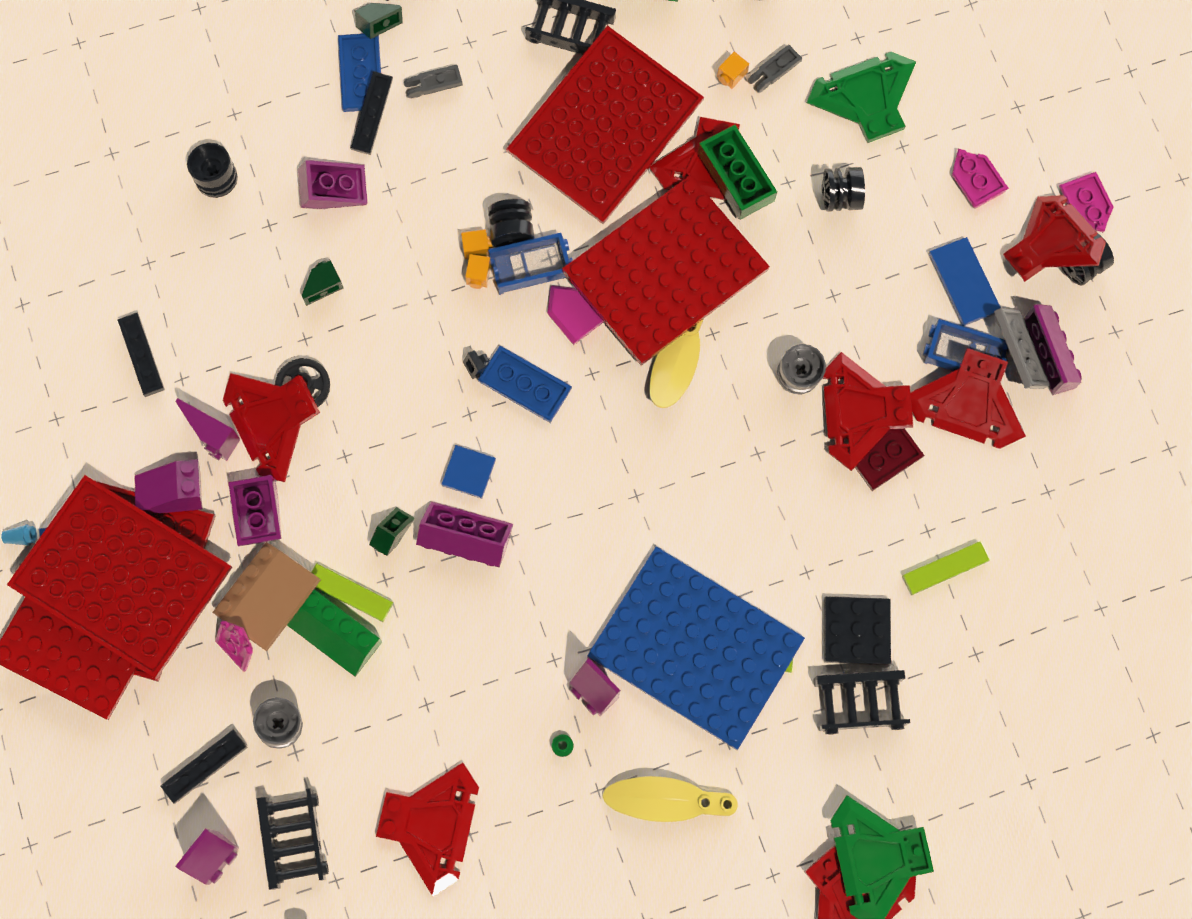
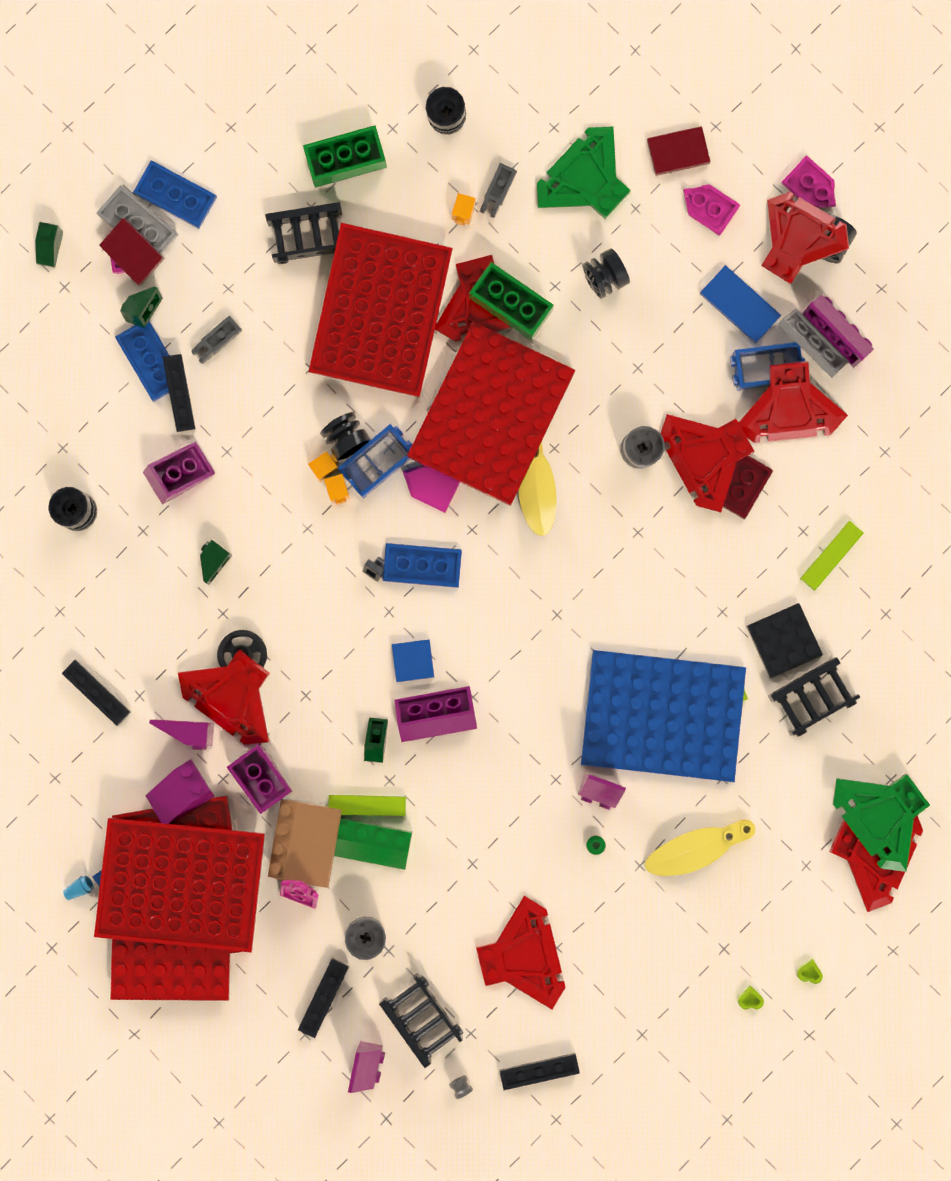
camera: 20 degrees left, 10 degrees up
(970, 112) = (678, 151): none -> dark red tile

